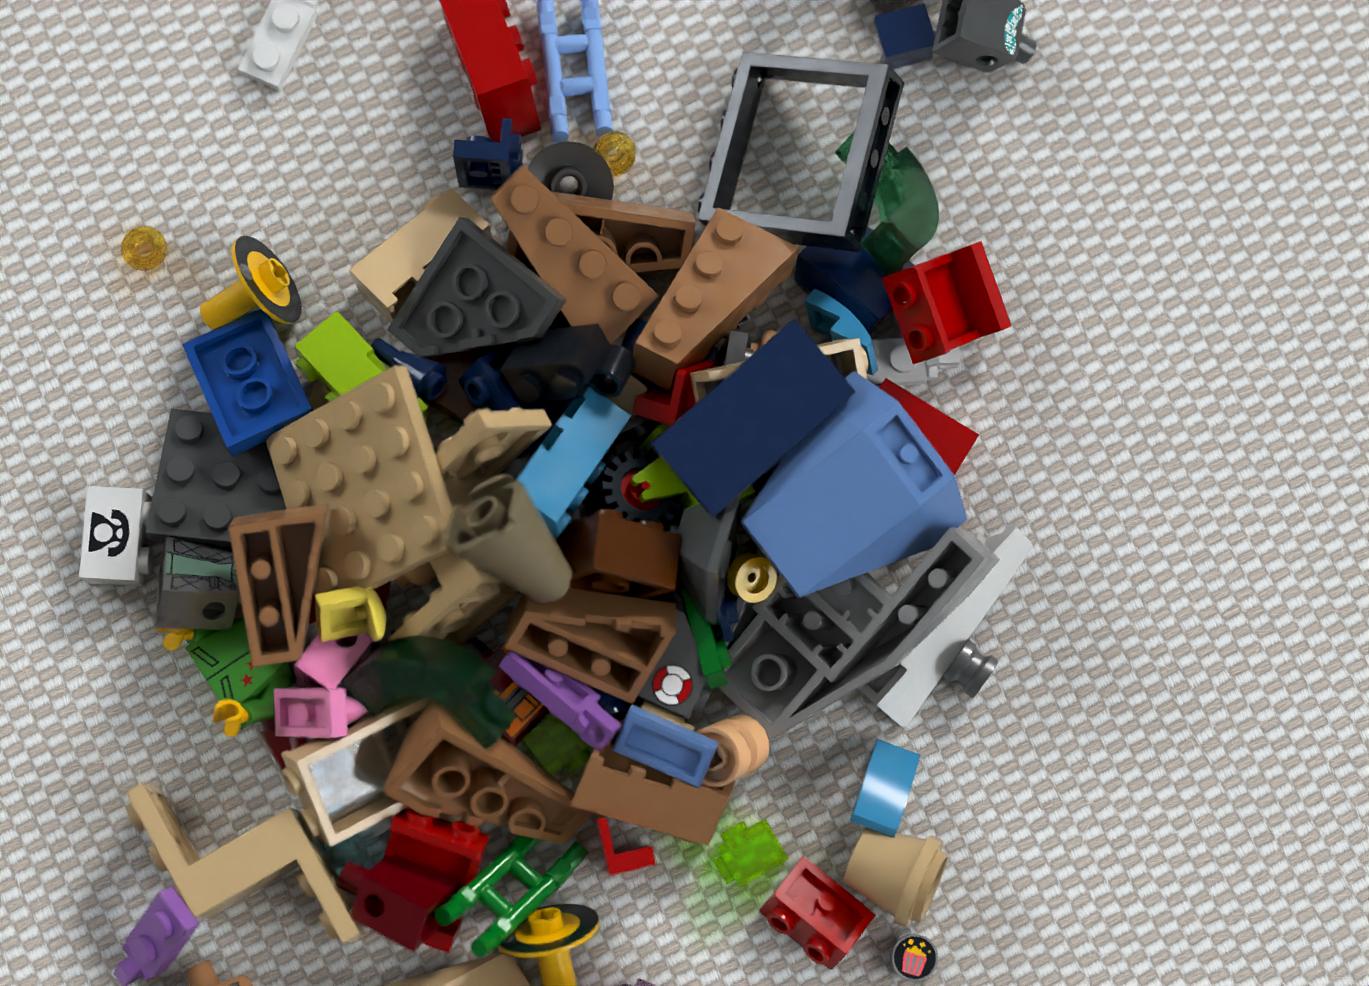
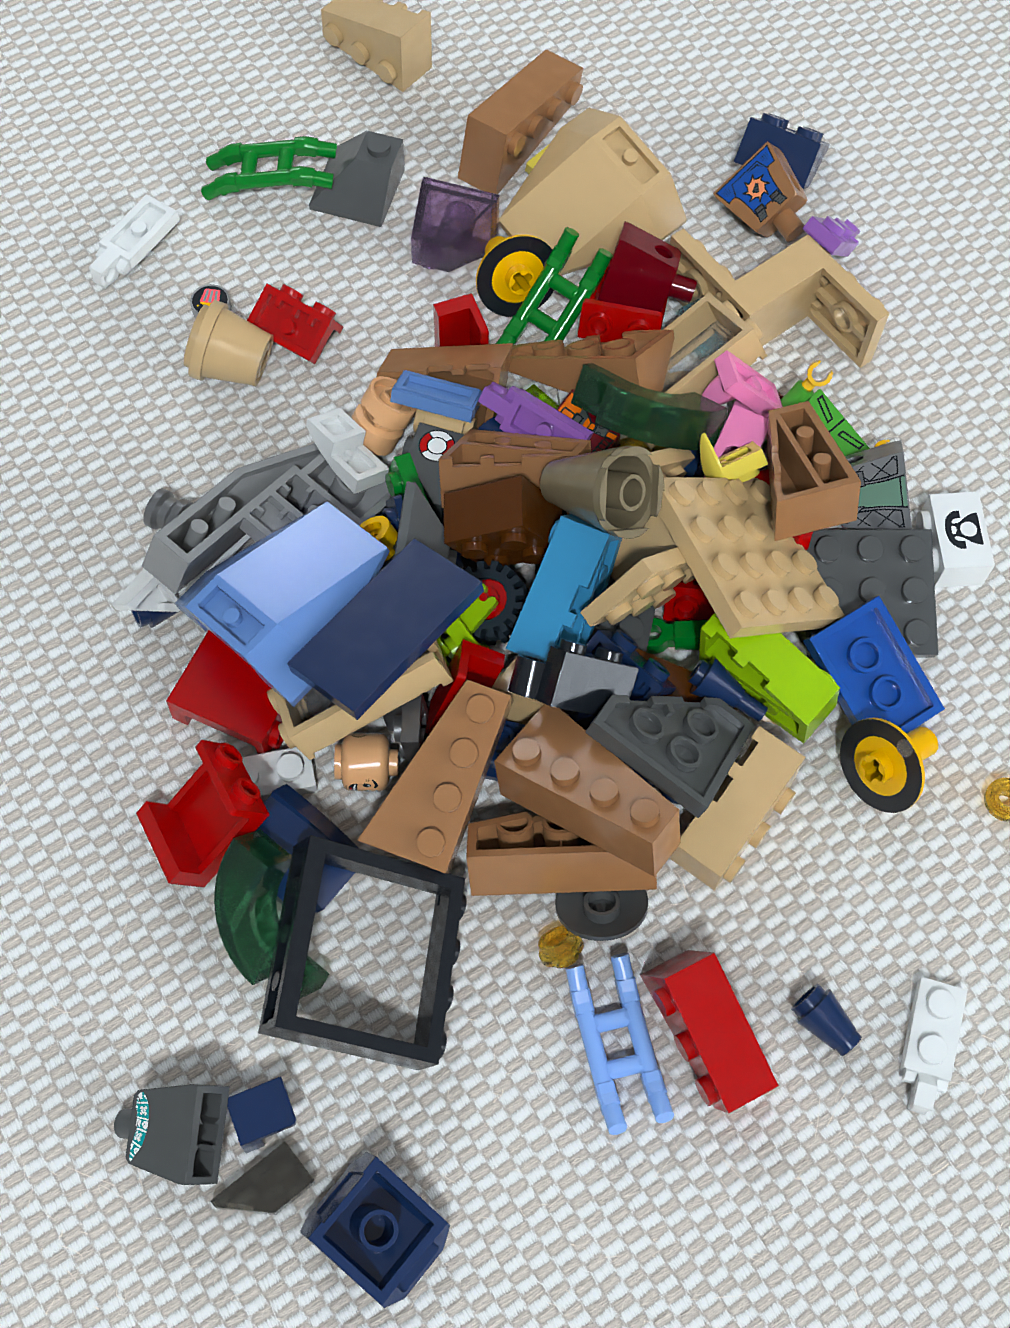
camera: 175 degrees right, 15 degrees down
(377, 59) = (826, 1019): none -> dark blue cone
(487, 163) = (687, 908): dark blue bracket -> none
(748, 853) = (354, 356): clear neon green brick -> none
(773, 704) = (342, 447): none -> white slope
(838, 323) = (300, 775): dark azure slope -> none
(885, 788) = (240, 409): dark azure slope -> none

